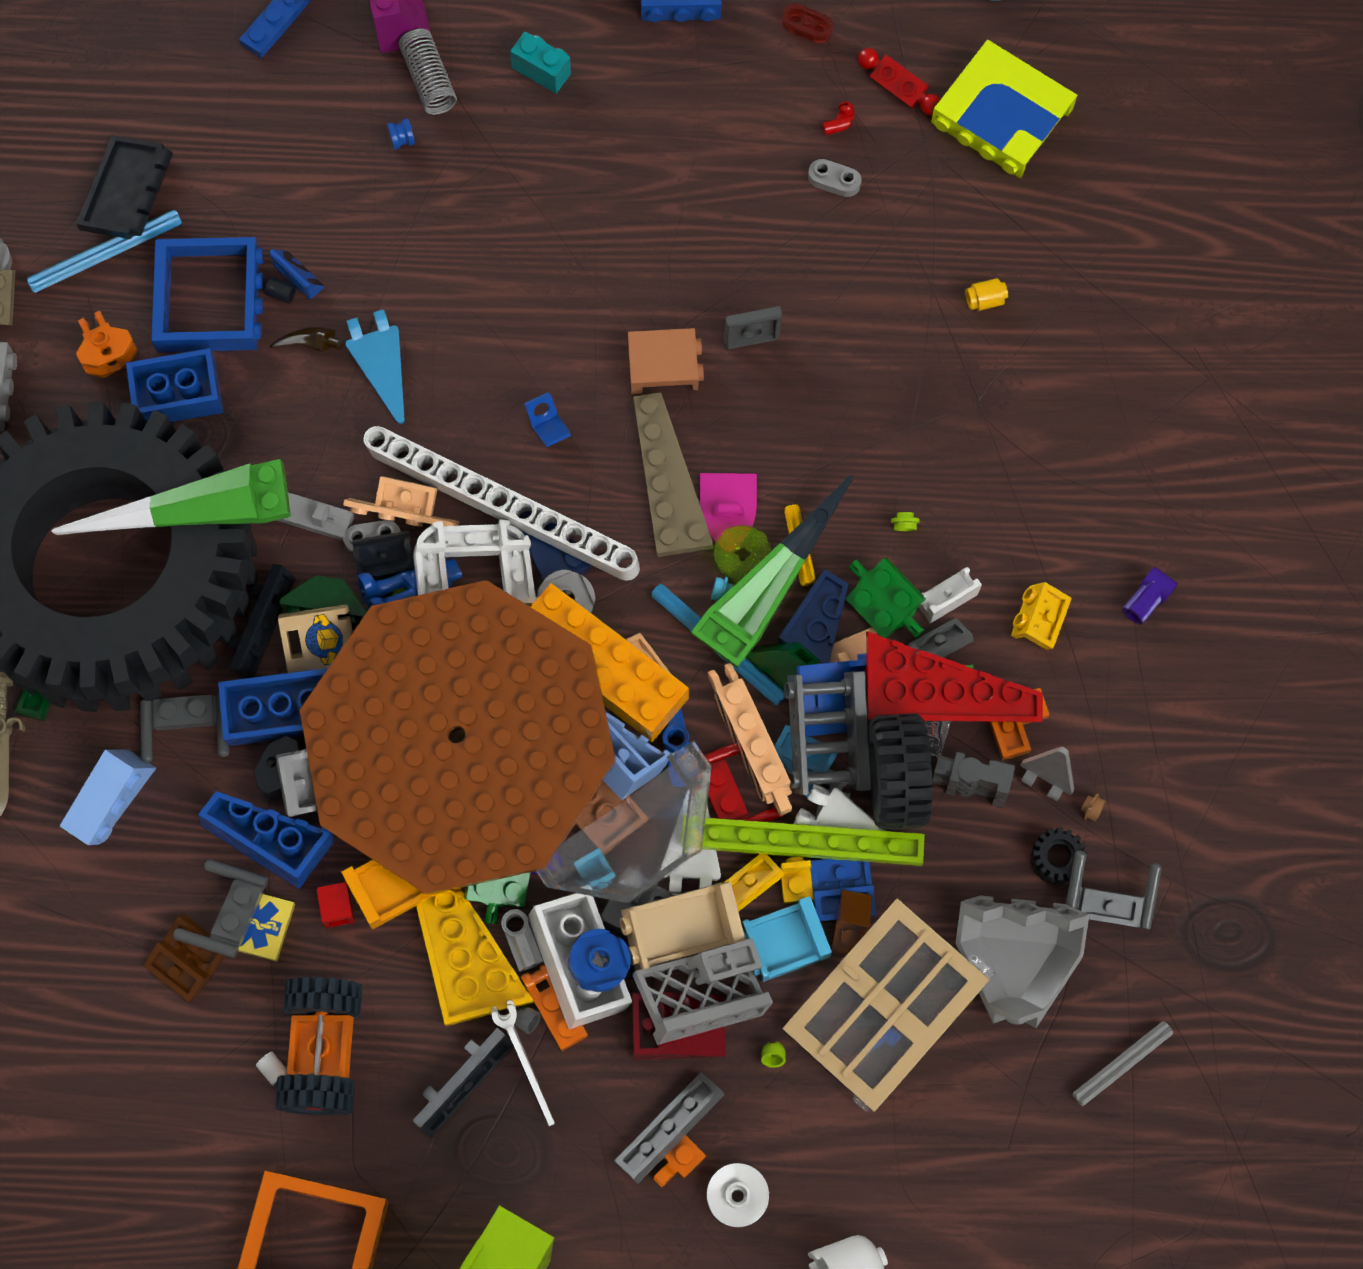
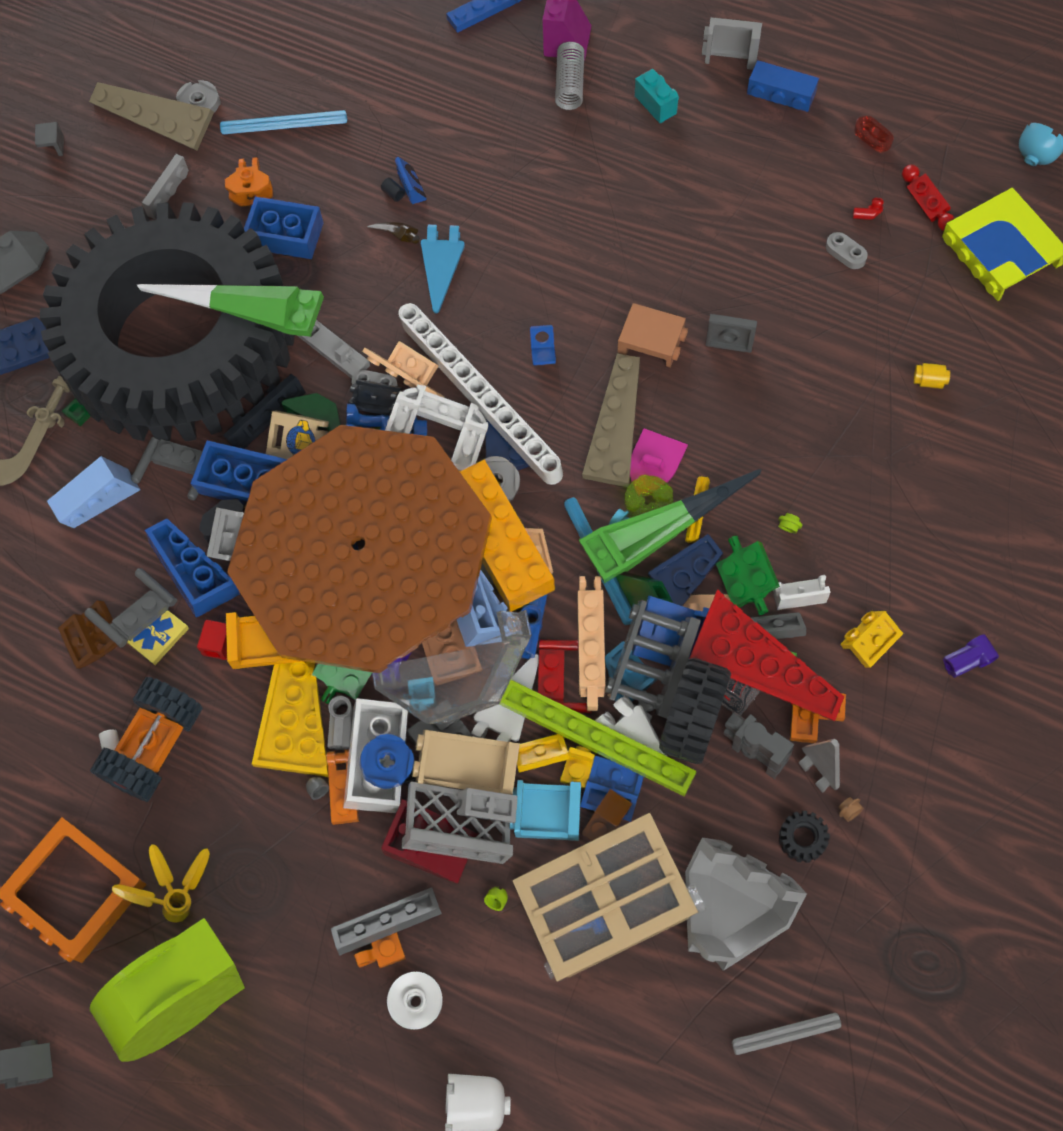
camera: 30 degrees right, 5 degrees down
(125, 188) = (317, 84): black hinge -> none
(217, 340) = (309, 159): blue window -> none
(401, 133) = (530, 112): blue wheel -> none
(438, 1199) = (164, 877): none -> yellow plant
(463, 1083) = (244, 815): black hinge -> none
(507, 1022) = (297, 794): white flag -> none
(1110, 905) = (832, 896): dark grey plate -> none

